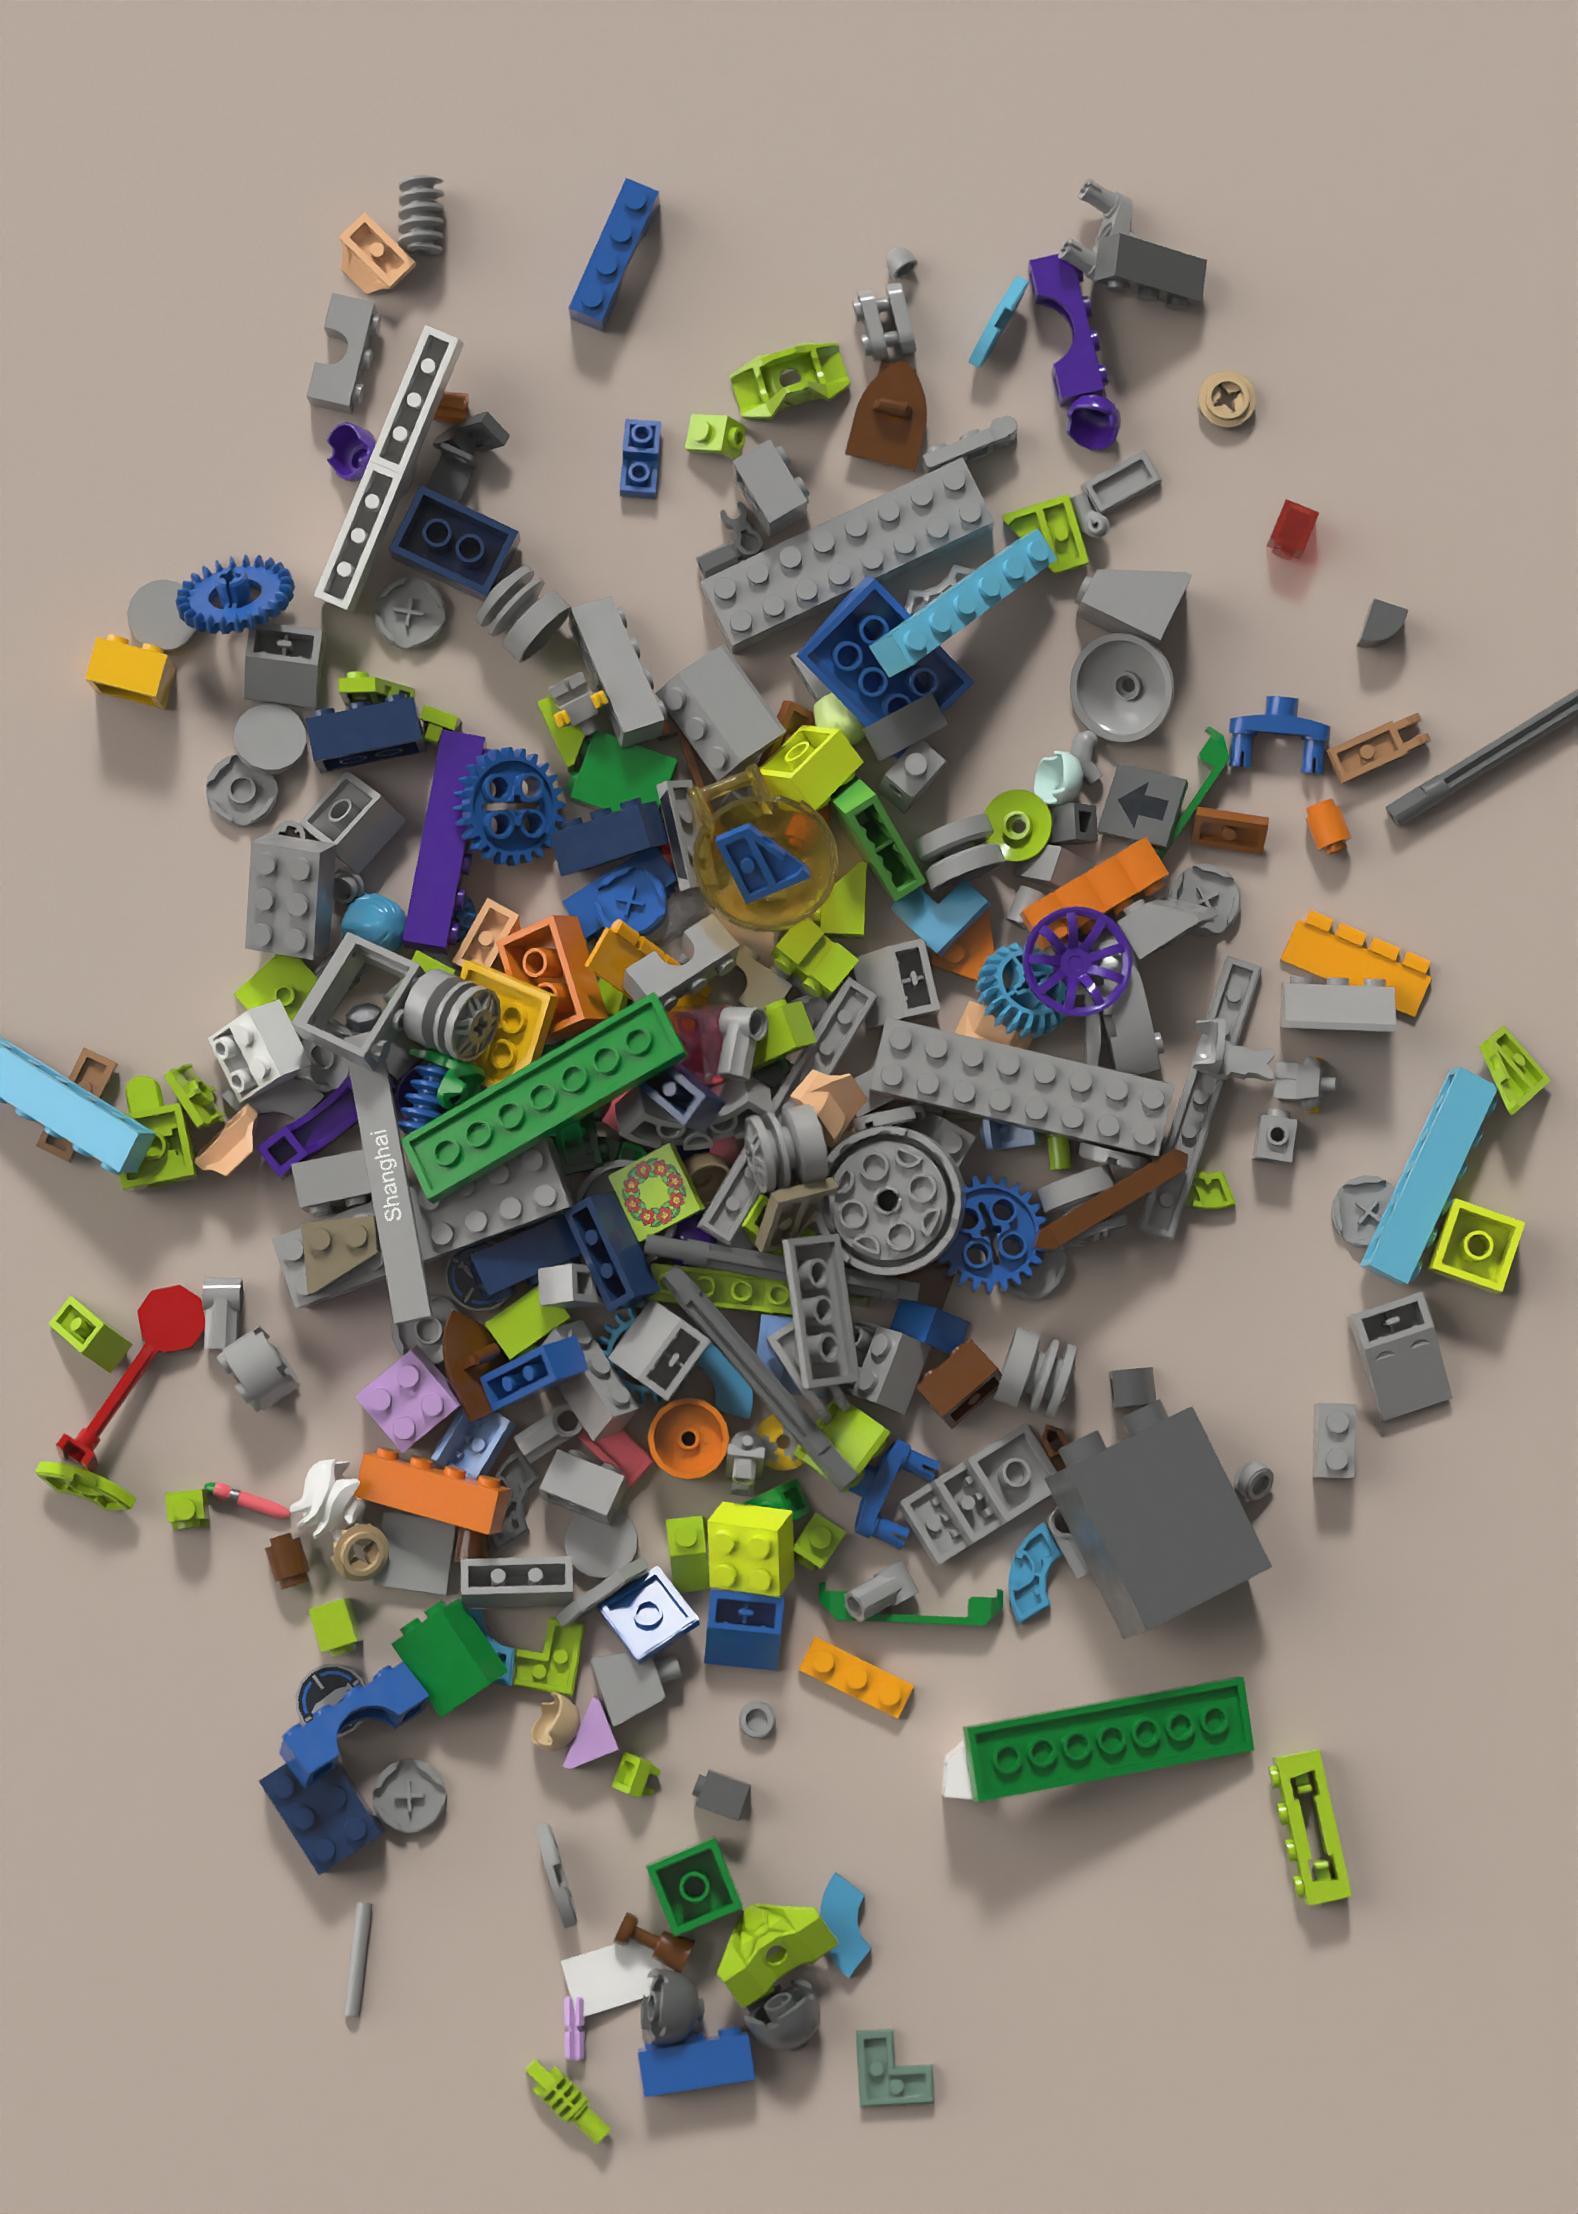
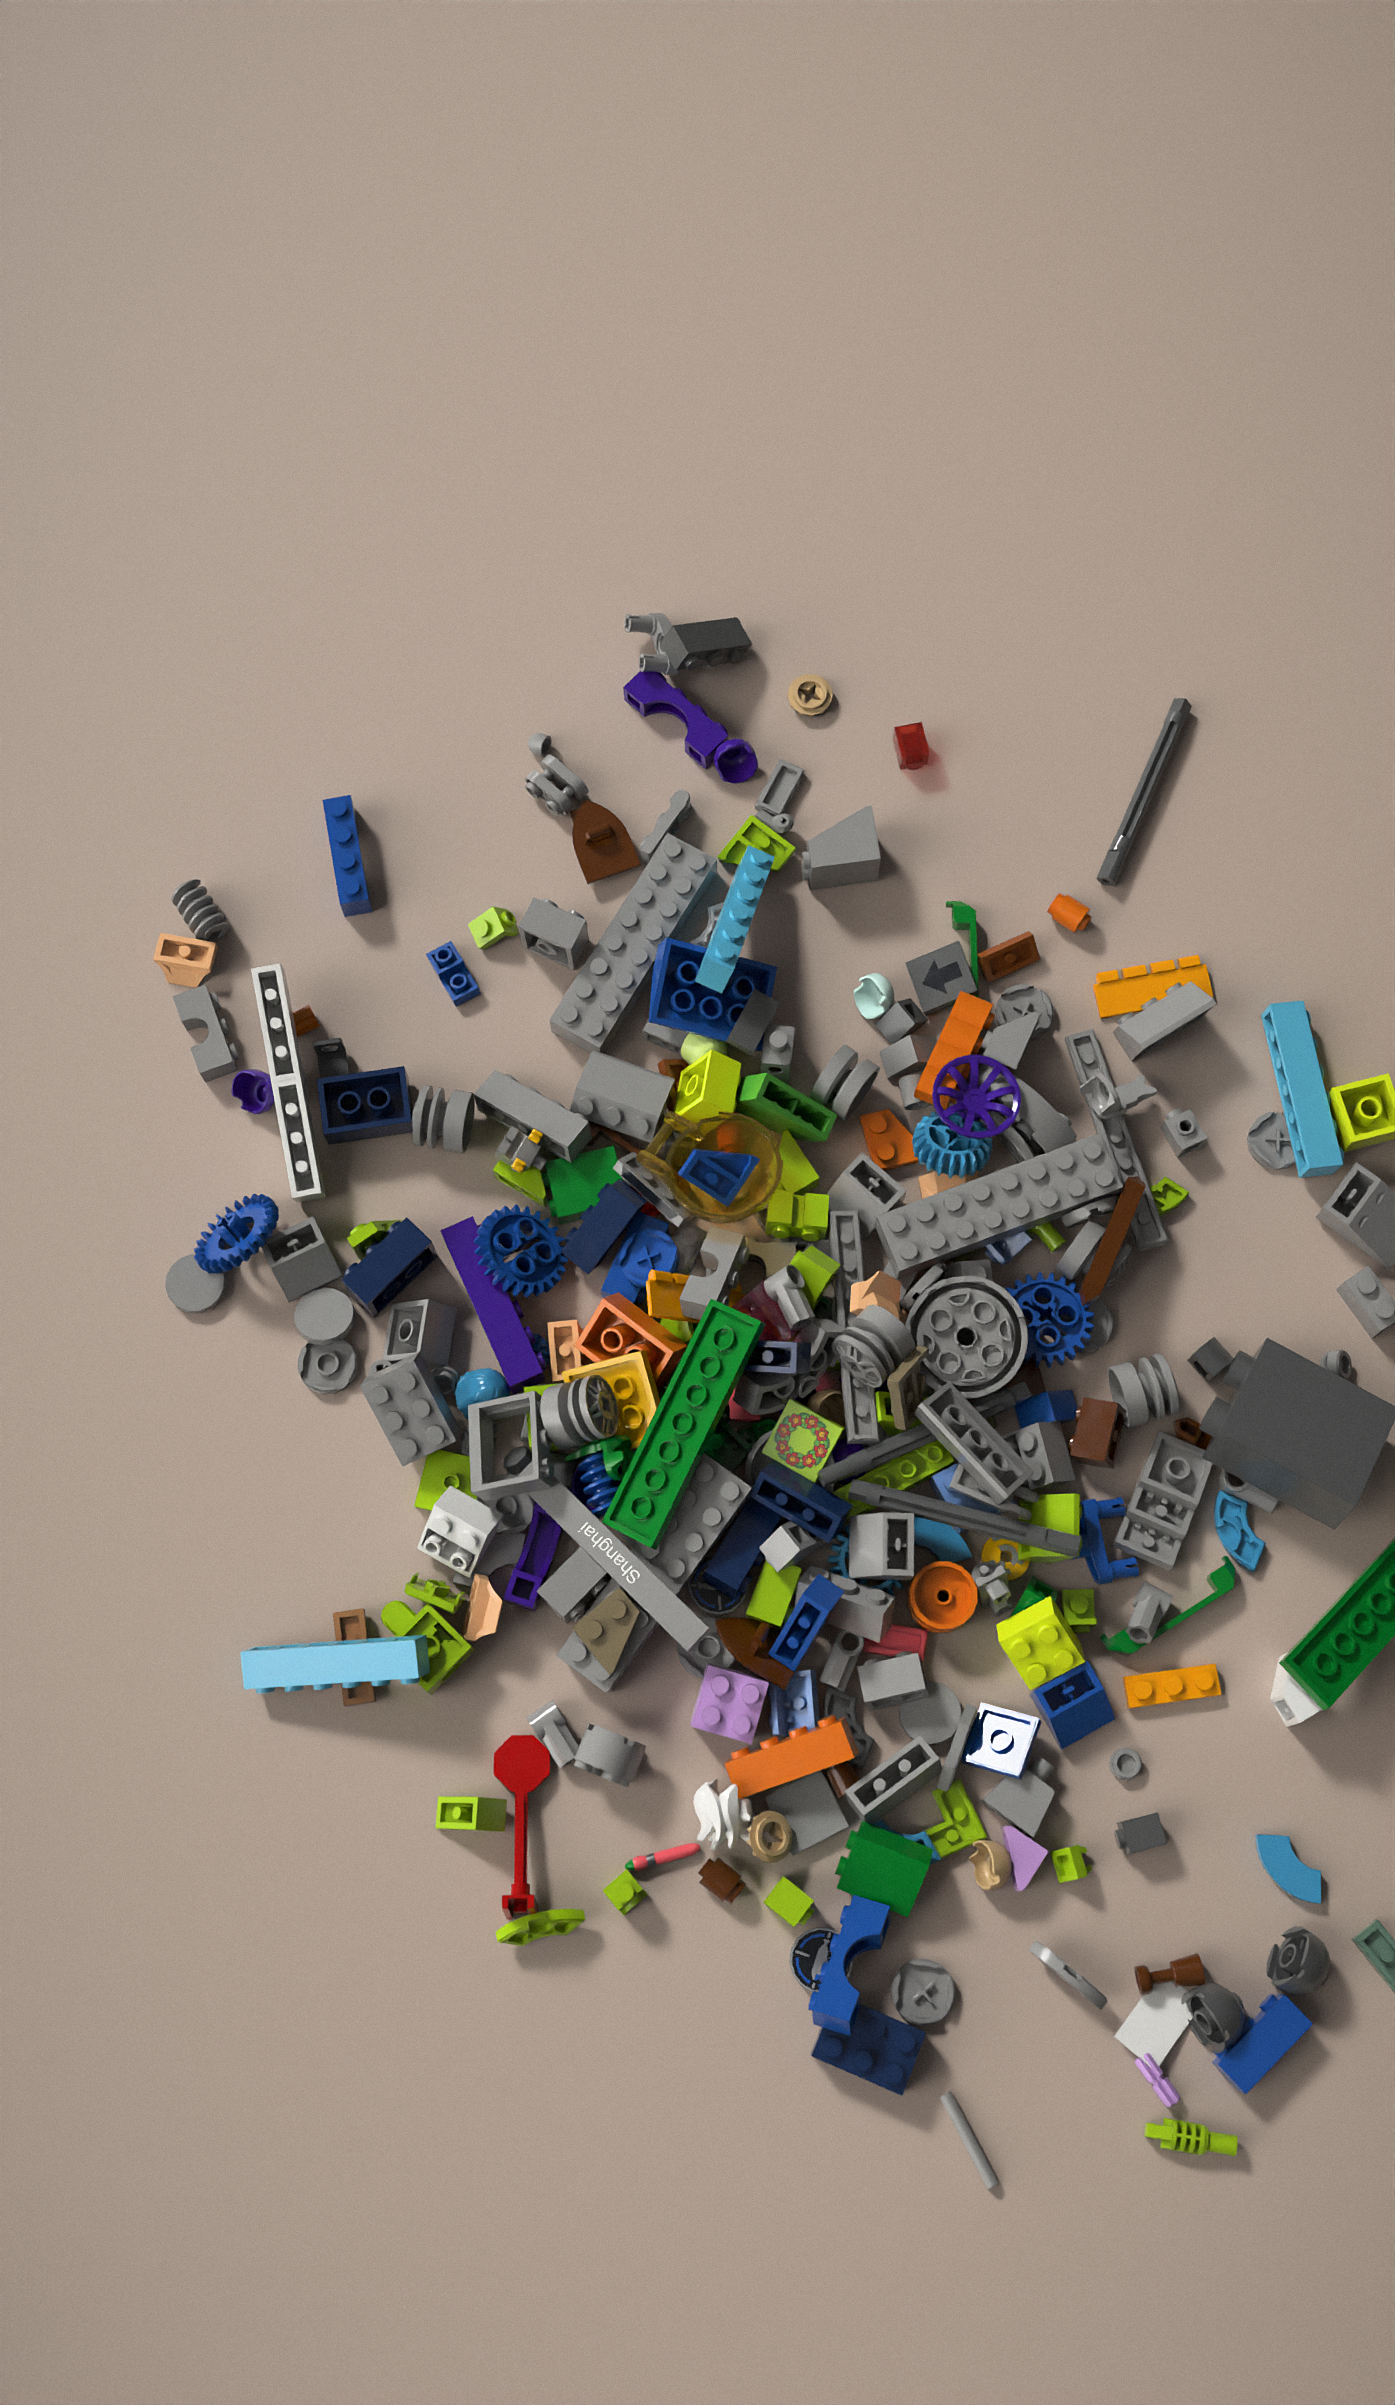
camera: 30 degrees left, 10 degrees down
(130, 671) = (197, 1332): yellow piece -> none
(409, 613) = (364, 1172): light grey tile -> none
(438, 721) = (432, 1227): lime tile -> none
(474, 434) = (333, 1024): dark grey slope -> none
(688, 1553) = (996, 1678): lime slope -> none
(694, 1885) = (1170, 1912): green brick -> none
(746, 544) = (559, 979): dark grey bar -> none
(758, 1929) = (1236, 1913): lime piece -> none
(759, 385) = (506, 882): lime piece -> none
(942, 922) = (865, 1136): dark azure tile -> none
(998, 322) = (630, 738): medium azure tile -> none
(1007, 811) = (867, 1028): lime dish -> none
(1082, 749) = (874, 964): light grey arm -> none
(1102, 692) = (855, 916): light grey dish -> none
(1282, 720) = (991, 866): blue connector -> none
(1303, 1083) = (1176, 1083): light grey piece -> none
(1374, 749) = (1062, 847): medium nougat hinge -> none
(1381, 623) = (1009, 766): dark grey brick -> none
(1512, 1069) = (1302, 985): lime wing -> none

